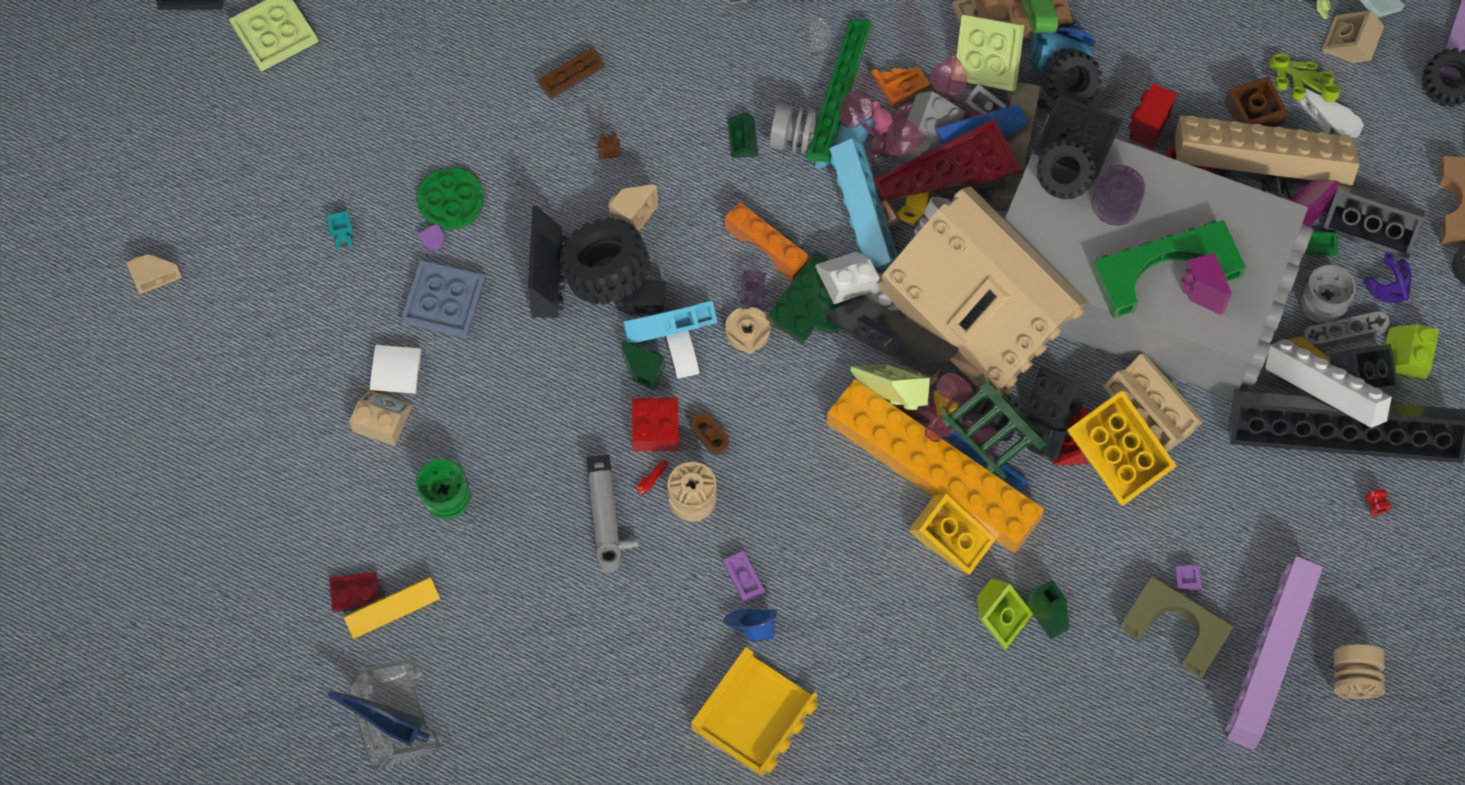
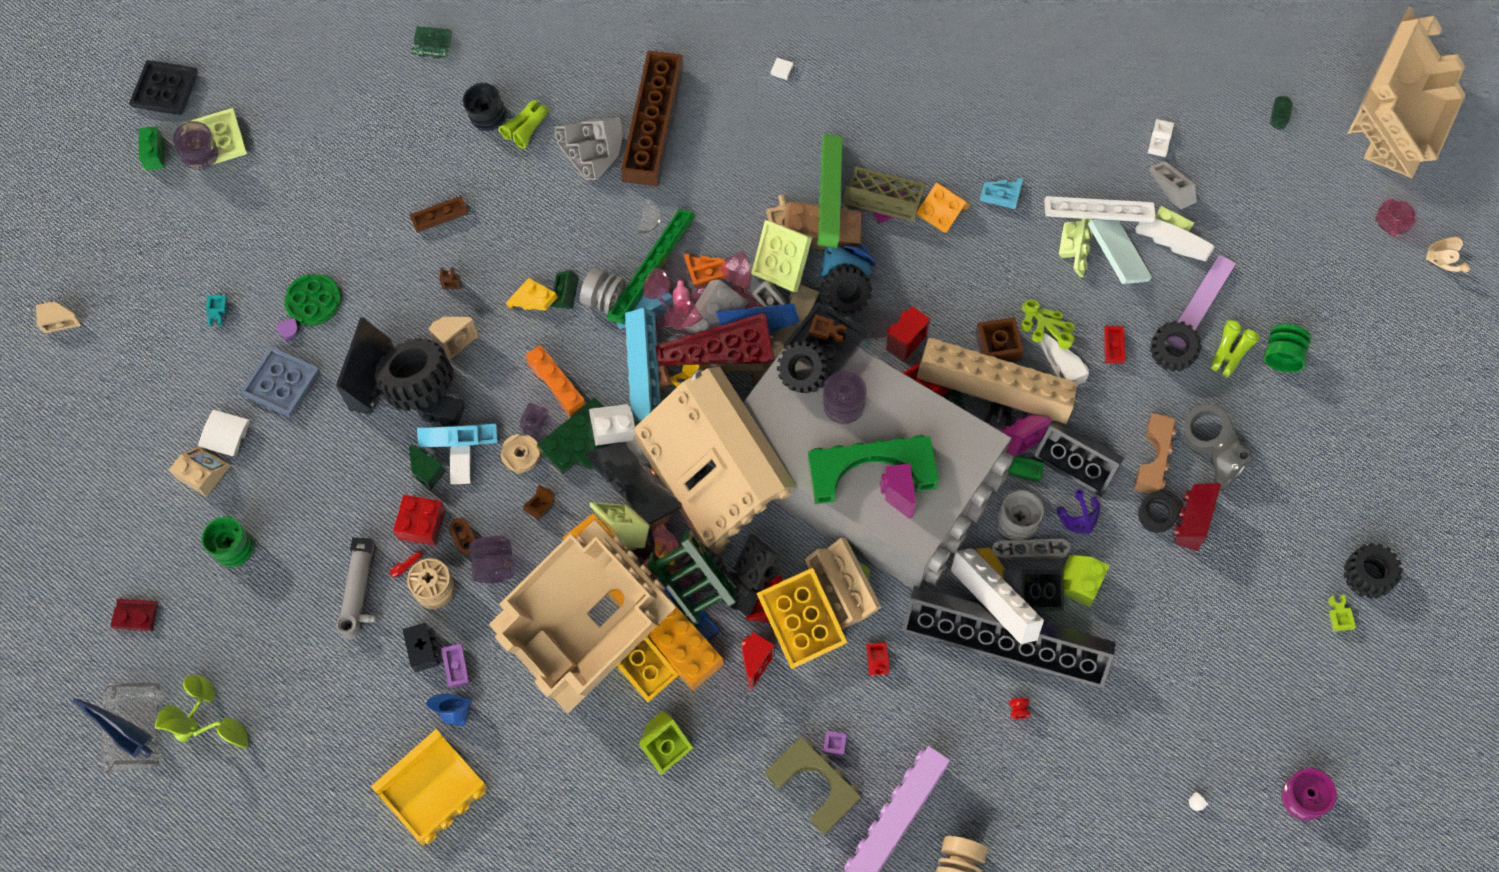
camera: 15 degrees right, 0 degrees up
(202, 54) = (151, 148): none -> green brick
(262, 41) = (195, 145): none -> clear purple wheel
(391, 607) = (158, 634): yellow tile -> none
(462, 699) = (173, 719): none -> lime plant
(700, 576) = (414, 638): none -> black brick
(709, 149) = (532, 296): none -> yellow wing
(753, 451) = (491, 559): none -> clear purple wheel
(787, 379) = (540, 503): none -> reddish brown bracket
(839, 496) = (549, 619): none -> tan panel
(1049, 609) = (705, 748): dark green slope -> none
(1075, 123) = (823, 328): none -> reddish brown plate
(1077, 501) = (756, 656): none -> red slope
(1211, 478) = (877, 658): none -> red bracket
(1354, 36) = (1100, 296): tan slope -> none
(1382, 88) = (1114, 344): none -> red plate

